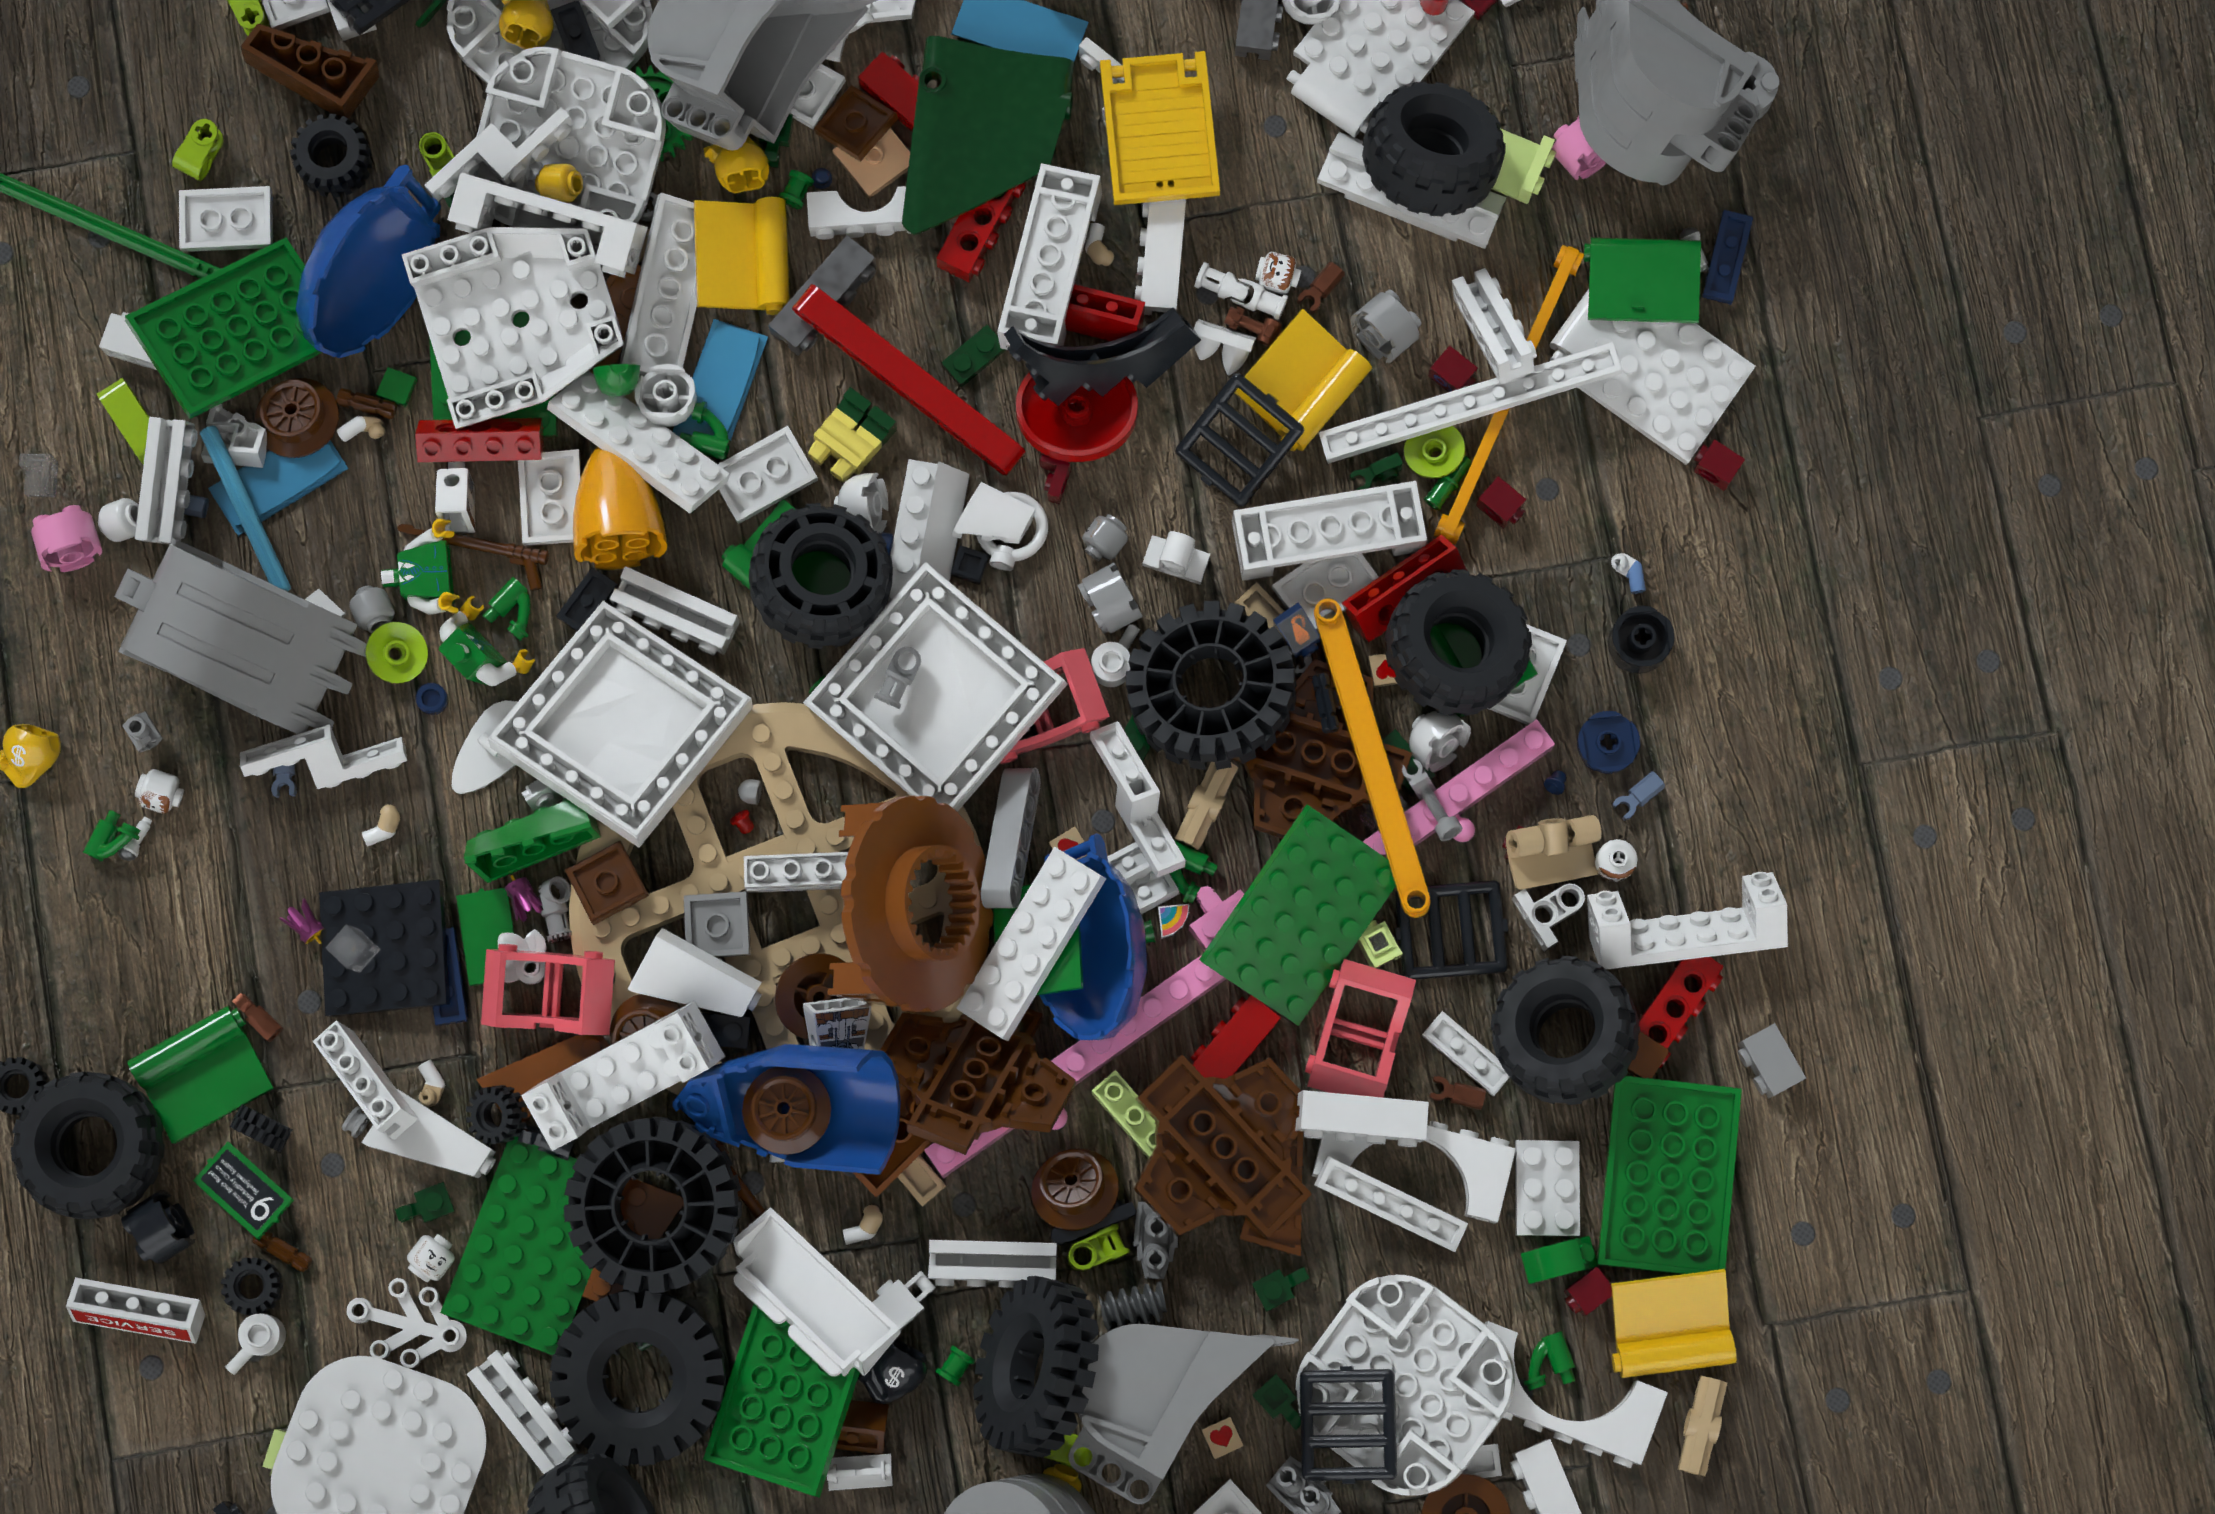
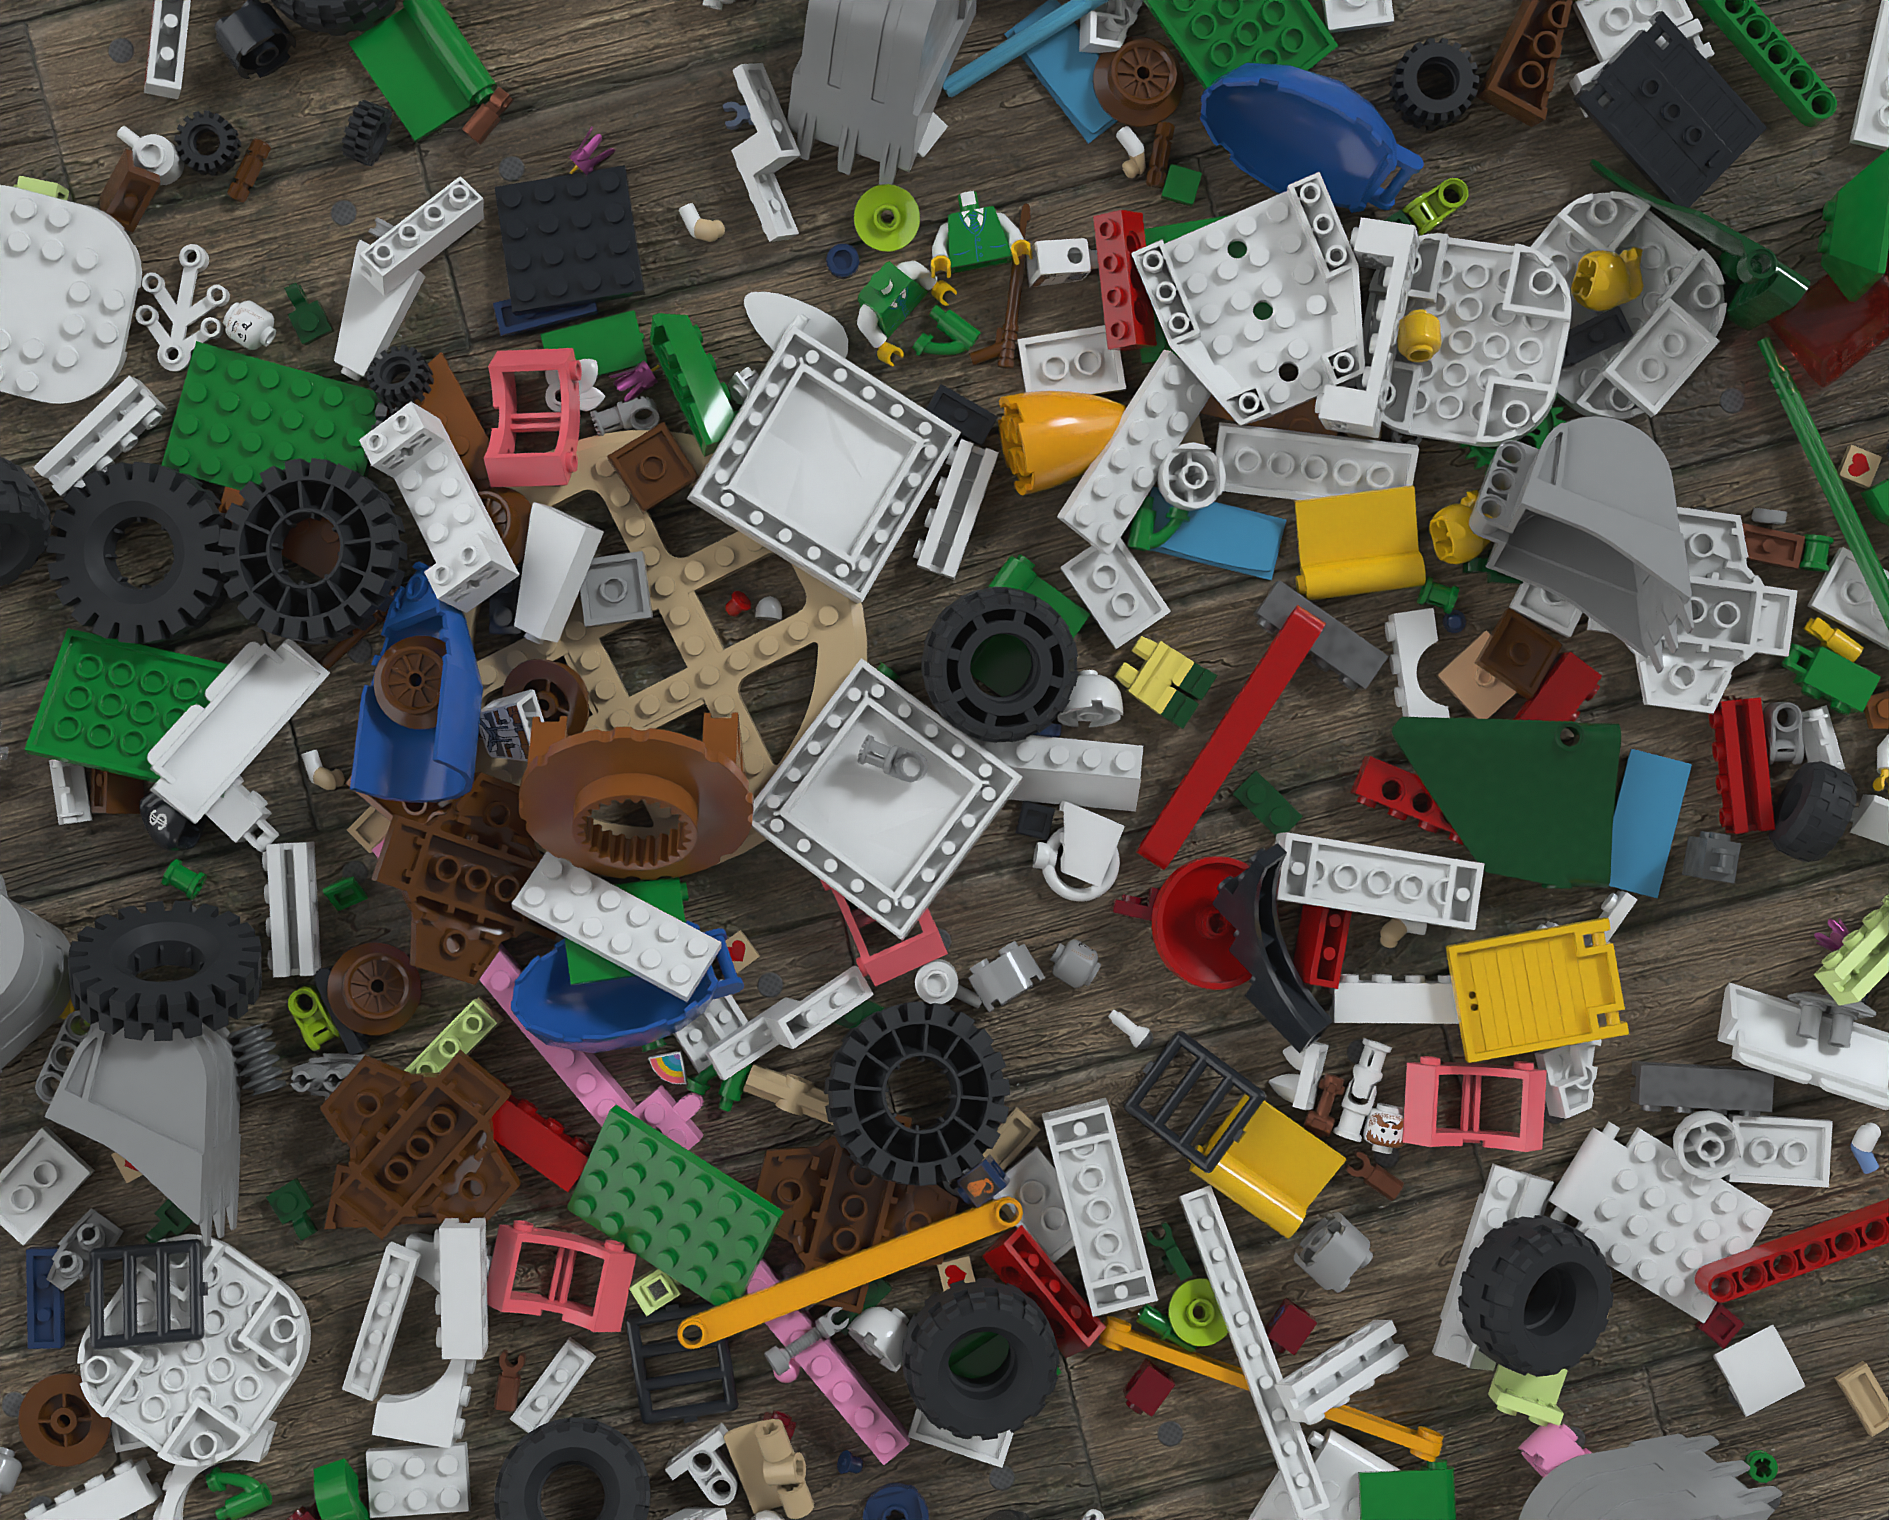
camera: 85 degrees right, 10 degrees up
(243, 1190) = (305, 123): piece -> none
(287, 1363) = (128, 192): none -> reddish brown panel
(352, 948) = (558, 206): clear brick -> none
(371, 608) = (932, 185): light grey head -> none
(433, 1086) = (431, 308): arm -> none
(500, 154) = (1443, 267): white bracket -> none
(617, 379) = (1199, 422): green piece -> none
(794, 872) = (677, 674): white brick -> none
(981, 1211) = (345, 893): none -> green slope
(1010, 838) = (735, 891): light grey beam -> none
(1176, 557) = (1059, 1041): white tile -> none
(1177, 486) = (1139, 1036): none -> white piece
(1243, 111) = (1568, 1077): none -> white slope
(1256, 236) = (1422, 1101): none -> coral window
(1325, 703) = (907, 1217): black axle -> none

